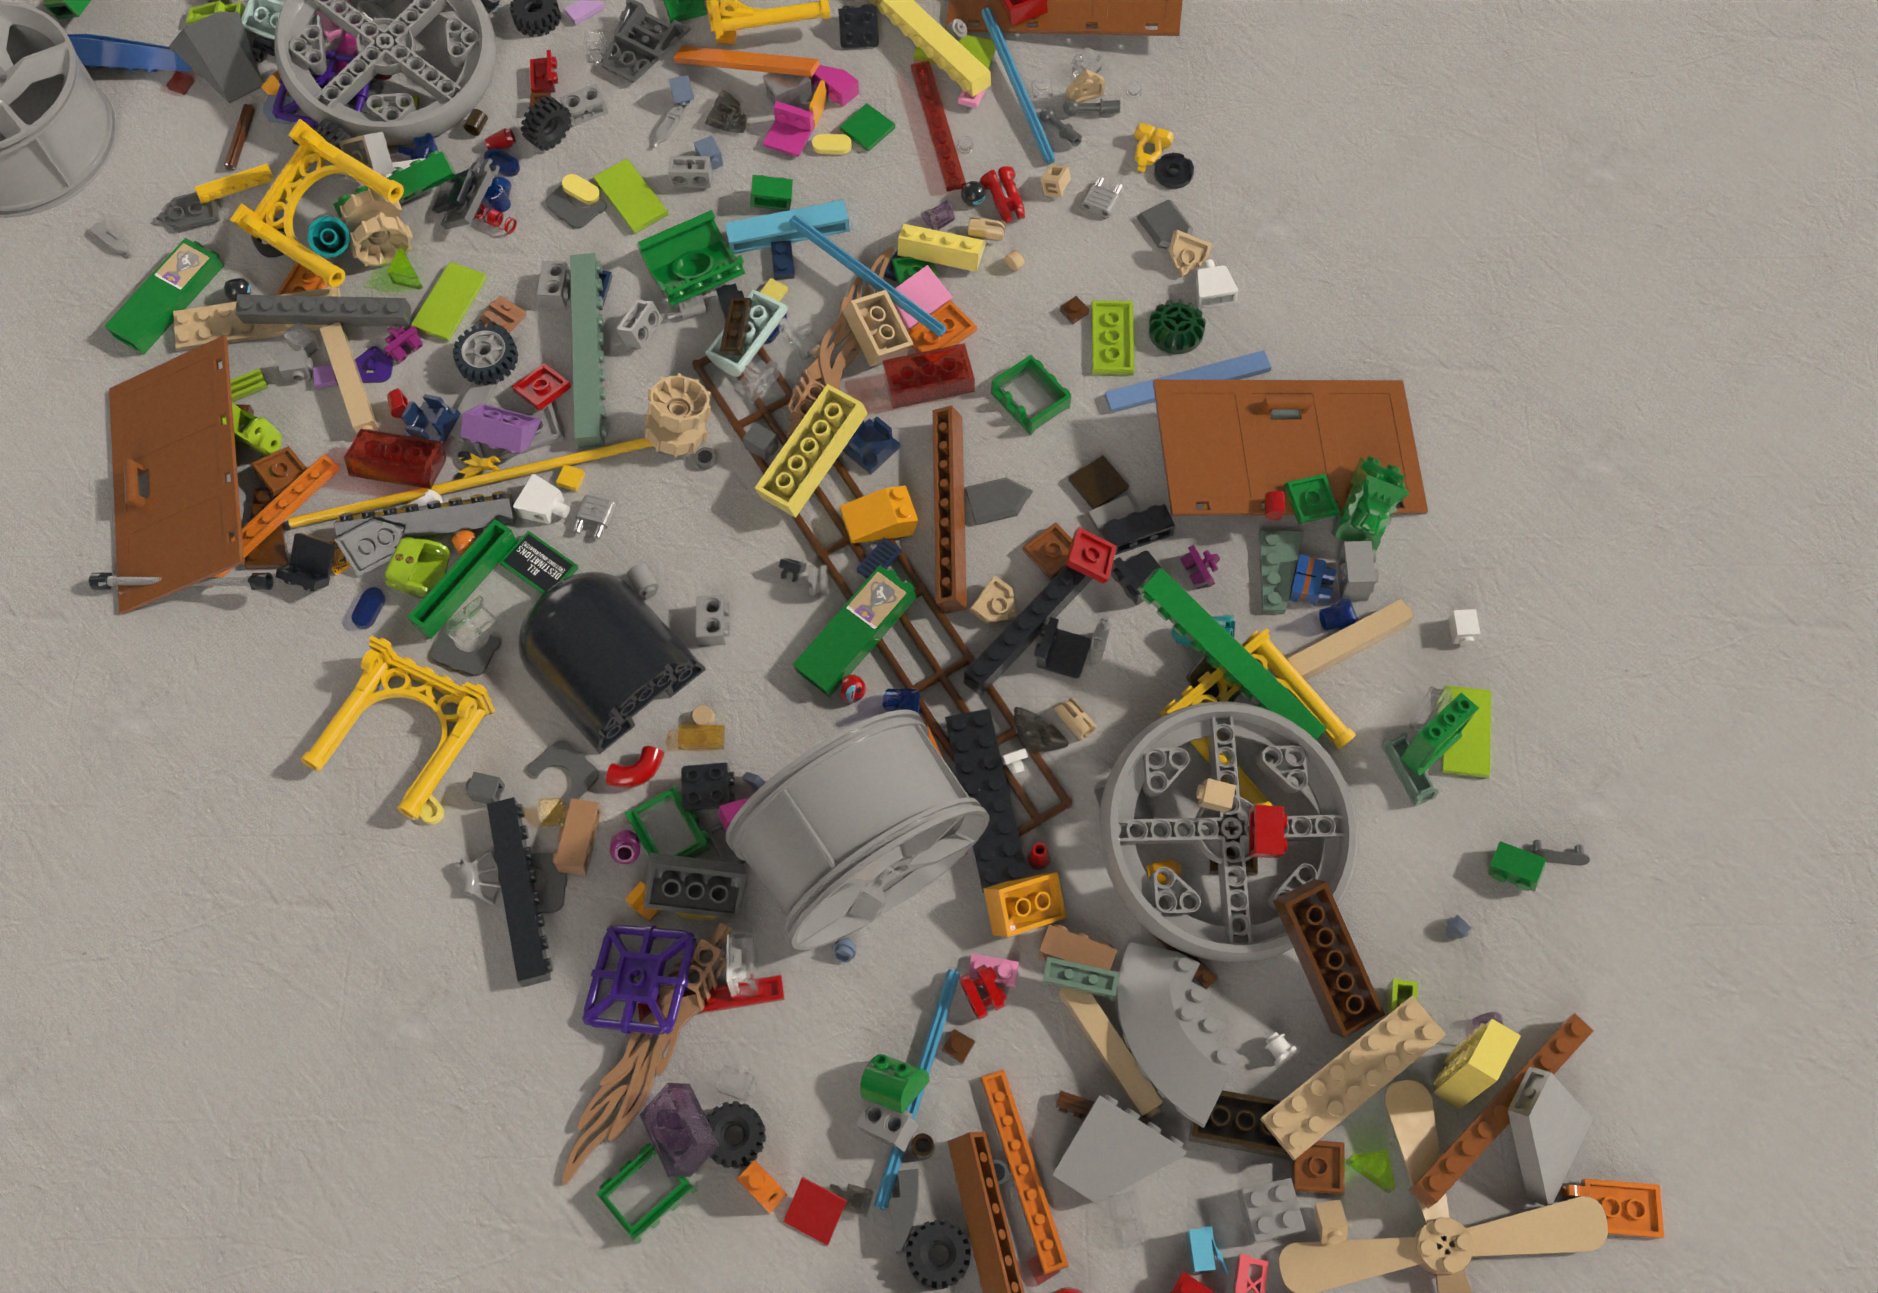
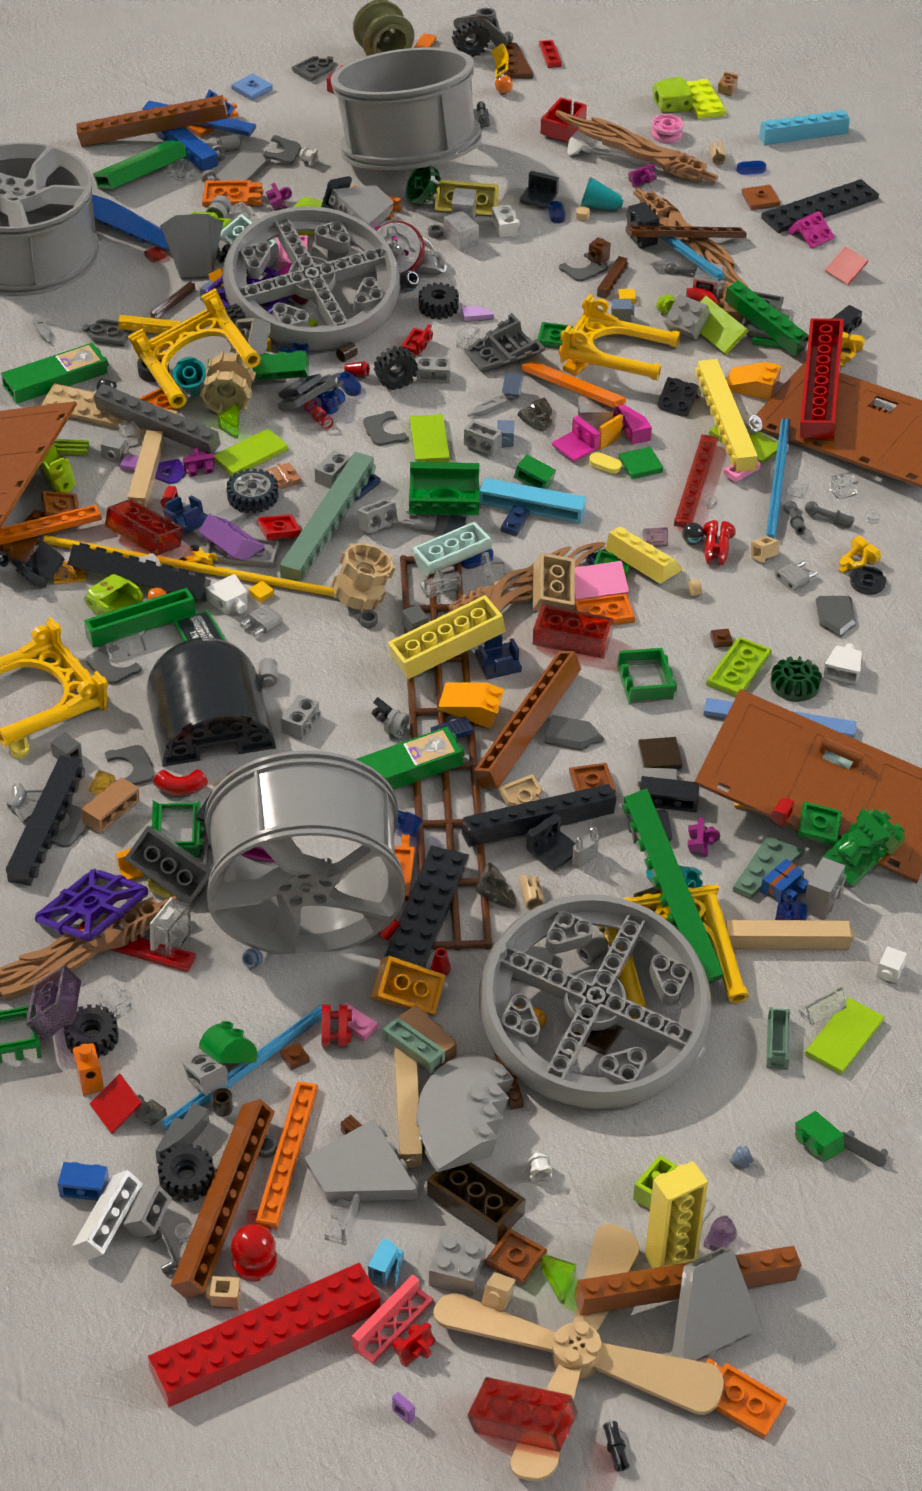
camera: 25 degrees right, 20 degrees down
(368, 608) = (63, 610): clear blue tile -> none
(370, 545) = (89, 569): tile -> none
(580, 189) = (394, 420): light yellow tile -> none
(625, 847) = (137, 822): magenta head -> none
(735, 326) = (444, 538): dark brown tile -> none
(774, 290) = (496, 536): light yellow tile -> none
(867, 275) = (569, 549): dark azure axle -> none
(986, 228) = (687, 558): tan arm -> none
(1015, 760) = (464, 893): white tile -> none
(1086, 87) = (832, 497): tan plate -> none
(1091, 555) = (612, 785): red plate -> none
(1188, 252) = (838, 632): tan plate -> none
(1215, 795) = (594, 960): tan brick -> none
(1267, 831) = (619, 1004): red brick -> none
(1329, 957) = (614, 1113): reddish brown brick -> none
(1352, 1077) = (572, 1199): tan plate -> none
(1439, 734) = (810, 1012): green window -> none

